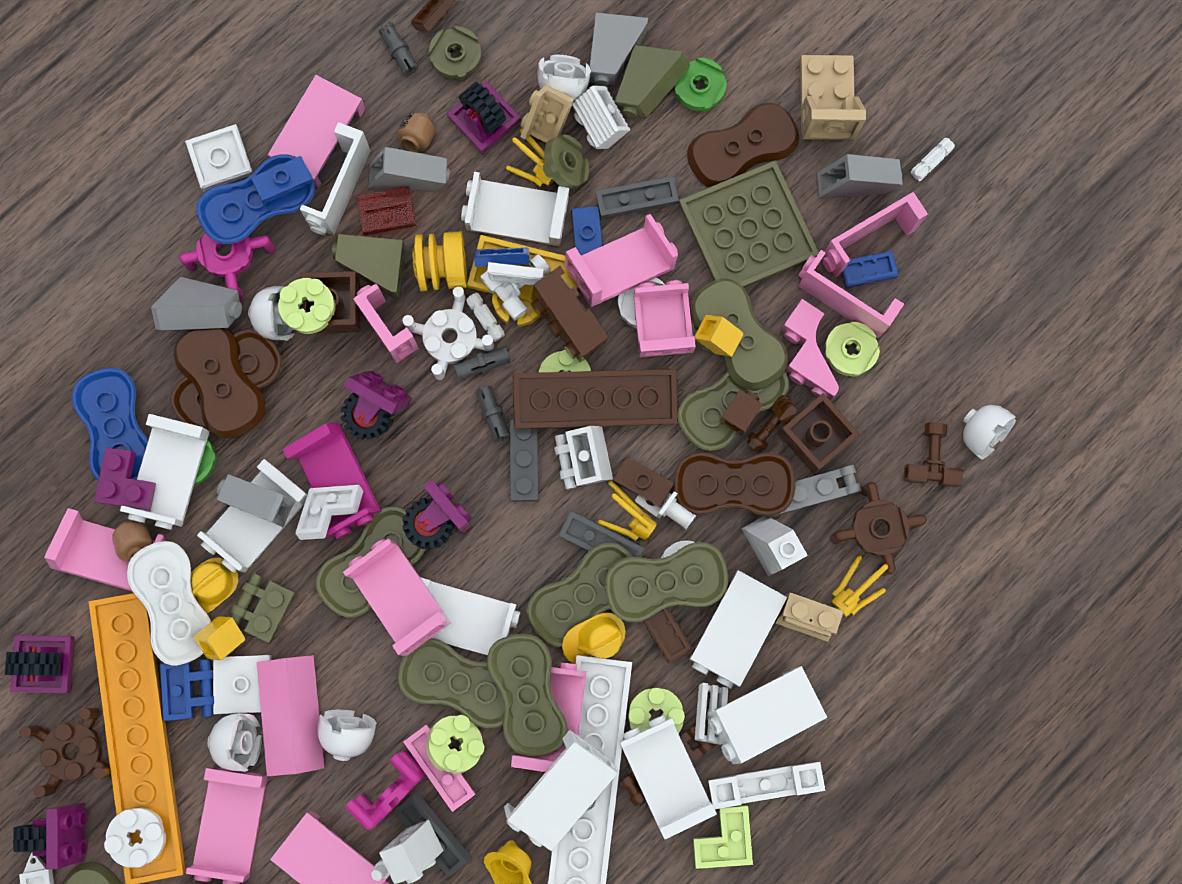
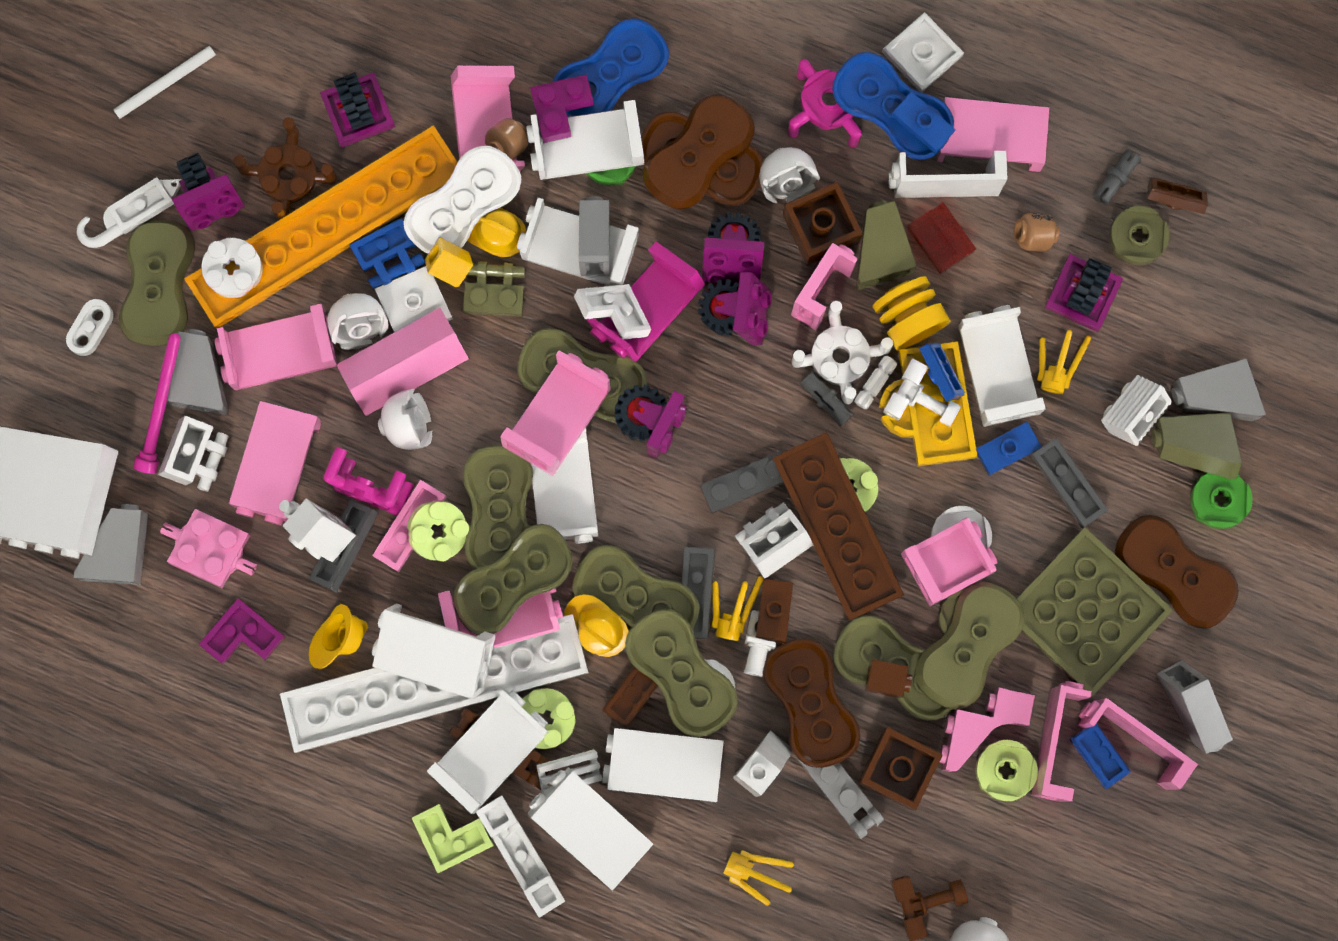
camera: 70 degrees right, 0 degrees up
(196, 306) = (761, 97): light grey slope -> none
(319, 386) = (732, 248): none -> magenta plate
(320, 313) = (806, 218): yellowish green plate -> none
(403, 168) = (990, 236): light grey slope -> none
(492, 413) = (779, 430): dark grey pin -> none
(514, 273) = (927, 391): white tile -> none
(547, 114) = (1112, 354): tan bracket -> none
(564, 75) = (1160, 354): white cylinder -> none
(565, 162) = (1062, 385): olive plate -> none
(567, 316) = (909, 462): reddish brown wedge -> none
(622, 263) = (990, 495): bright pink panel -> none
(718, 335) = (956, 623): yellow panel -> none
(783, 411) = (904, 723): reddish brown hinge -> none
(809, 617) = (706, 834): tan window -> none
(828, 98) = (1269, 639): tan bracket -> none
(863, 527) = (847, 871): reddish brown plate -> none
(932, 159) = (1252, 777): white axle -> none

